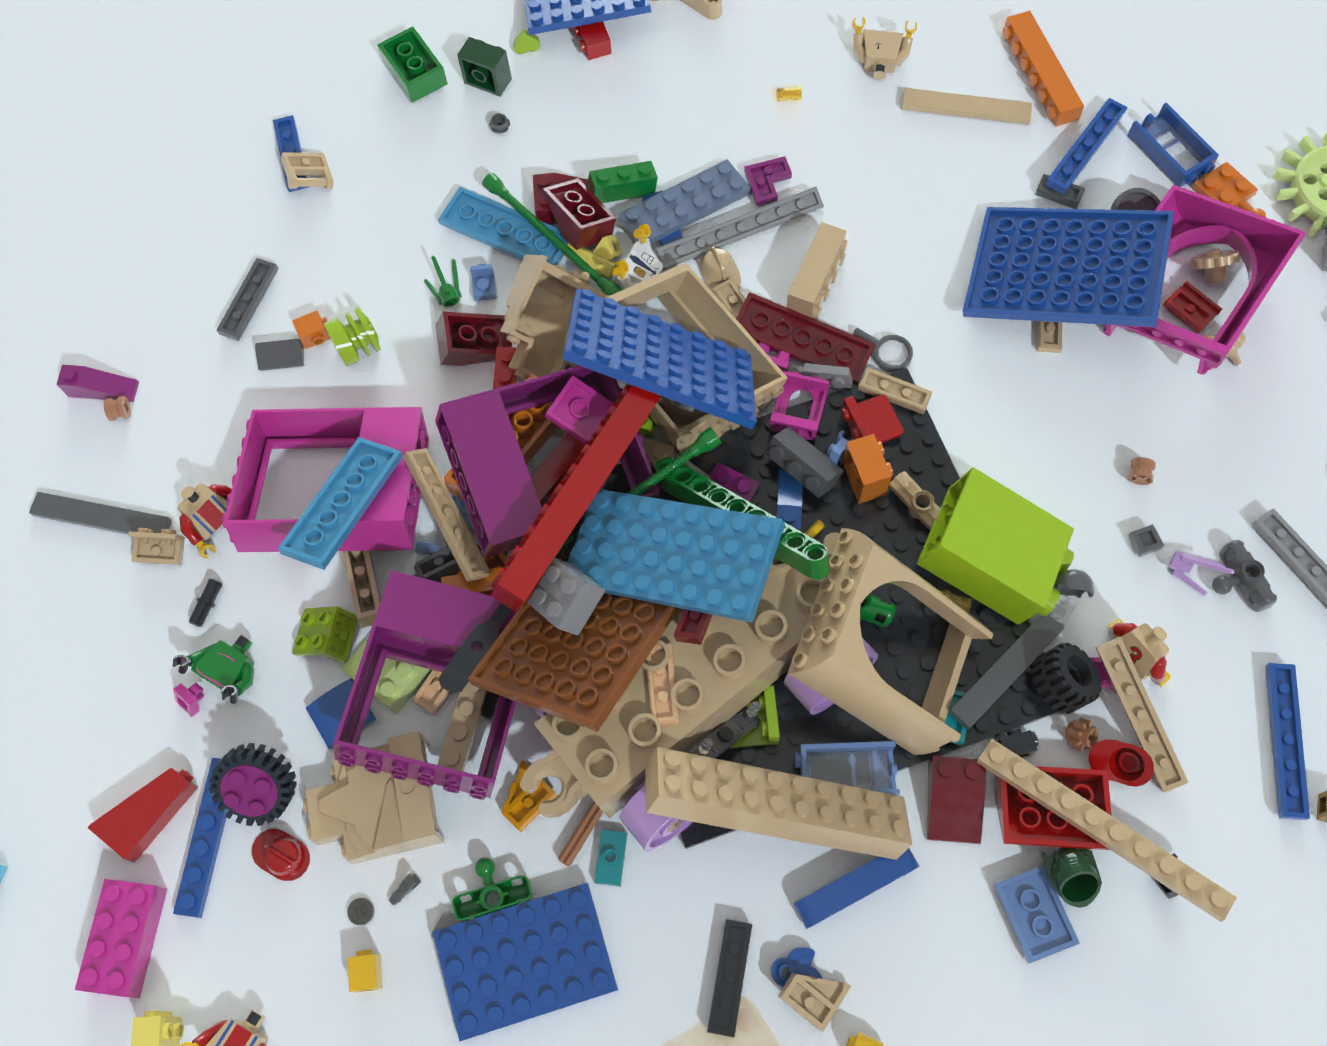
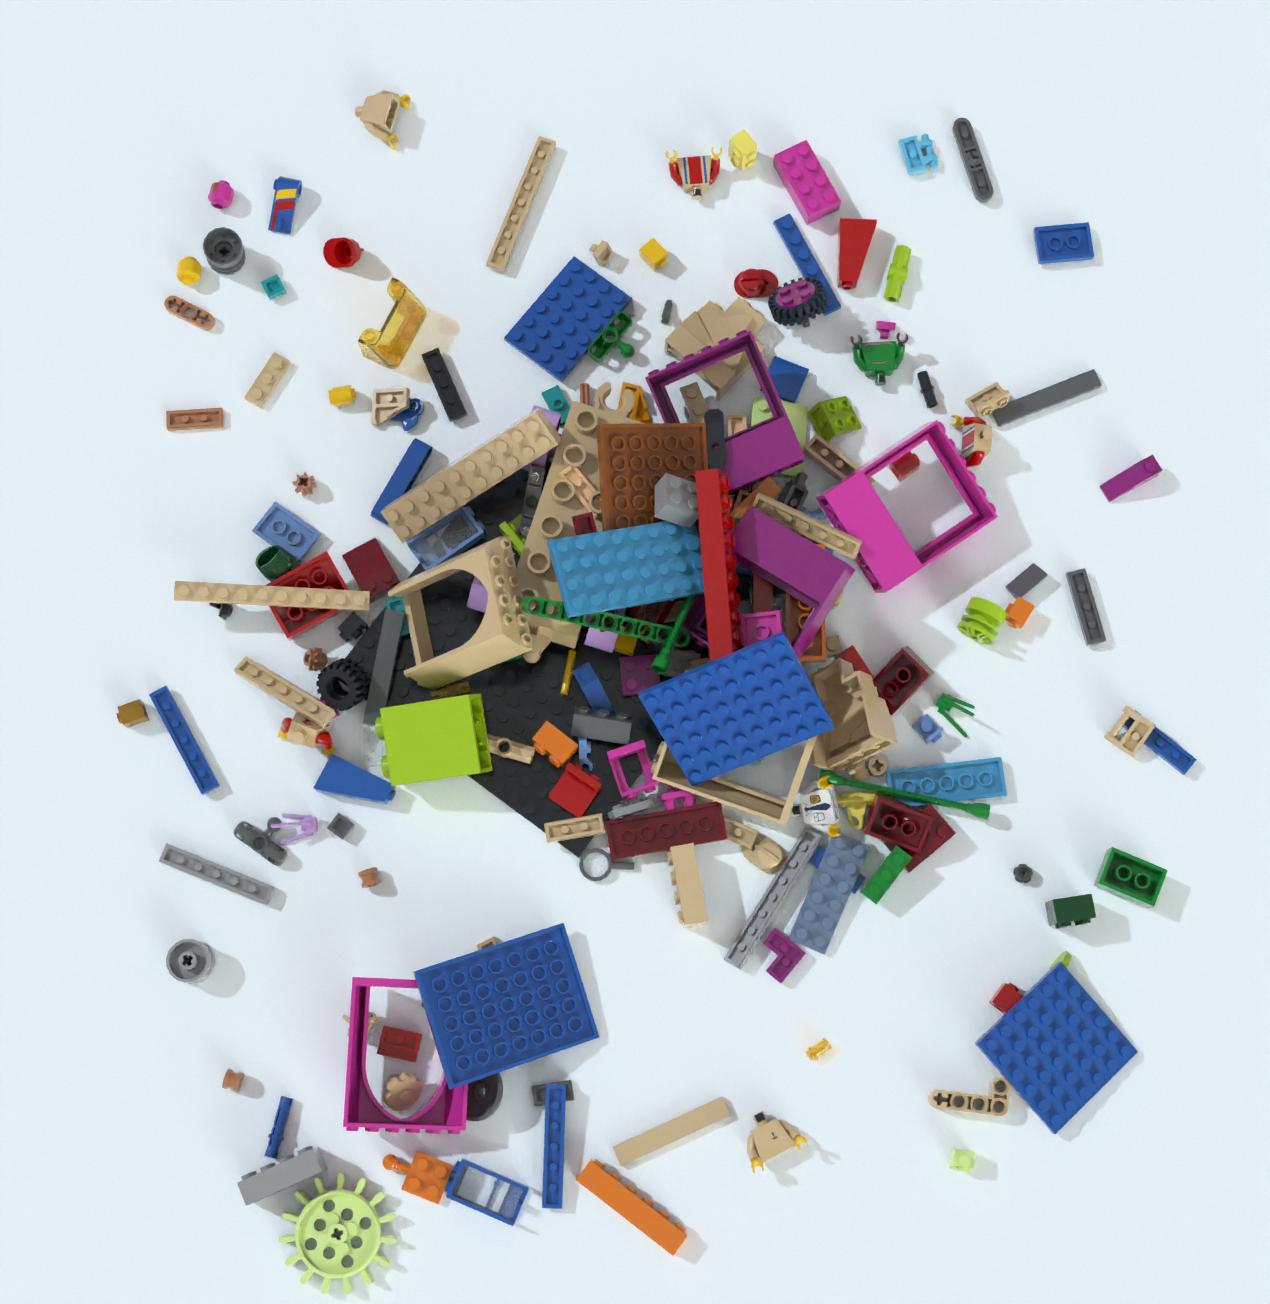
camera: 140 degrees right, 10 degrees up
(117, 408) = (1101, 471): nougat wheel -> none
(122, 752) = (897, 273): none -> lime piece
(340, 503) = (872, 479): dark azure plate -> none
(360, 911) = (683, 285): clear smoke piece -> none
(424, 1021) = (601, 252): none -> tan tile
(983, 954) = (308, 480): none -> nougat gear
(1074, 583) = (371, 751): dark grey hair -> none
(1115, 581) = (351, 781): none -> blue slope
(1124, 762) = (279, 656): red piece -> none

